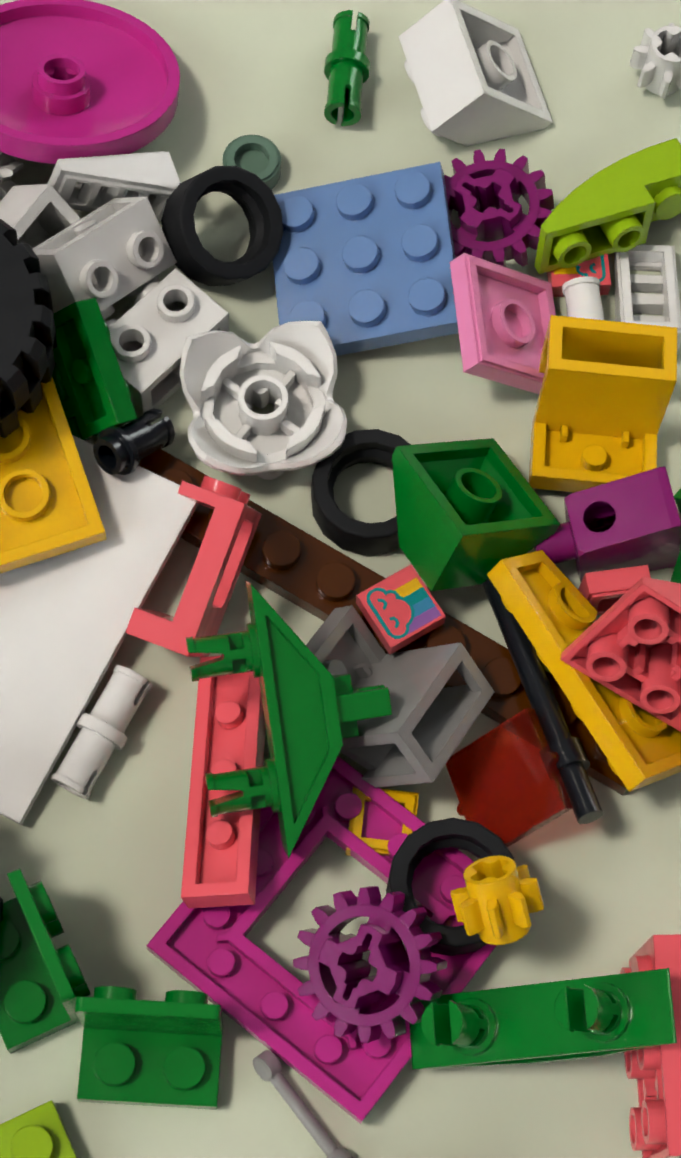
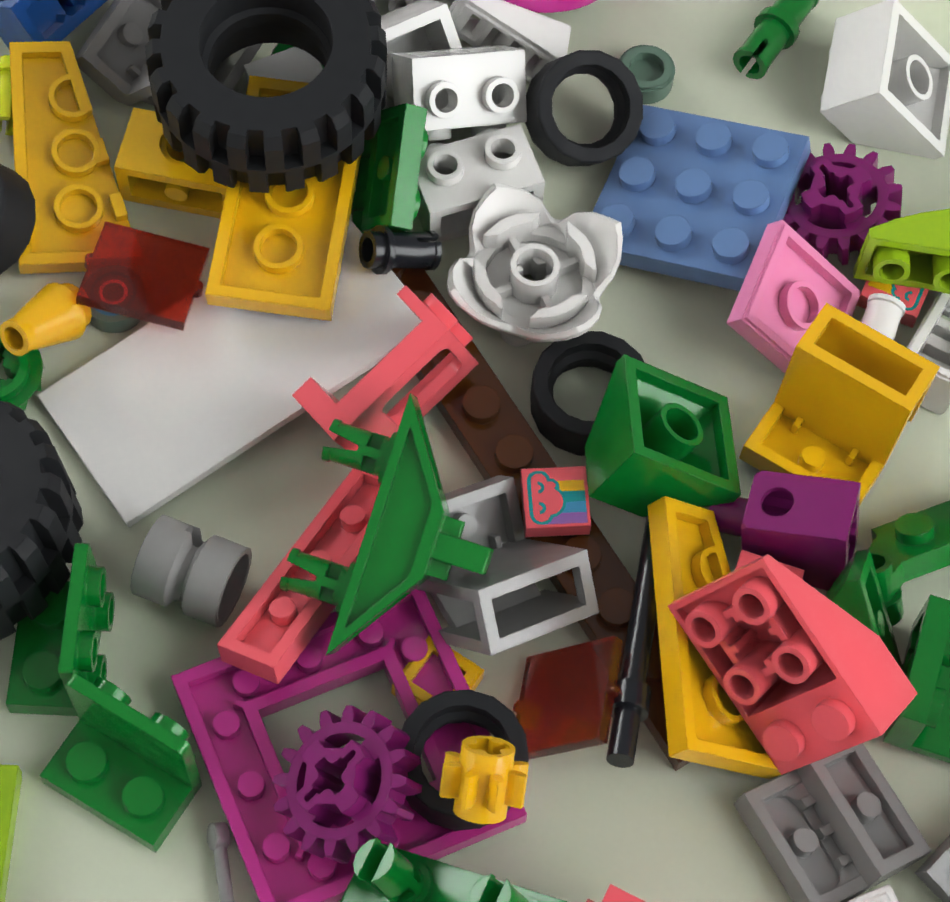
camera: 30 degrees right, 5 degrees down
(101, 731) = (239, 481): white pin -> none
(109, 838) = (184, 568): none -> light grey wheel

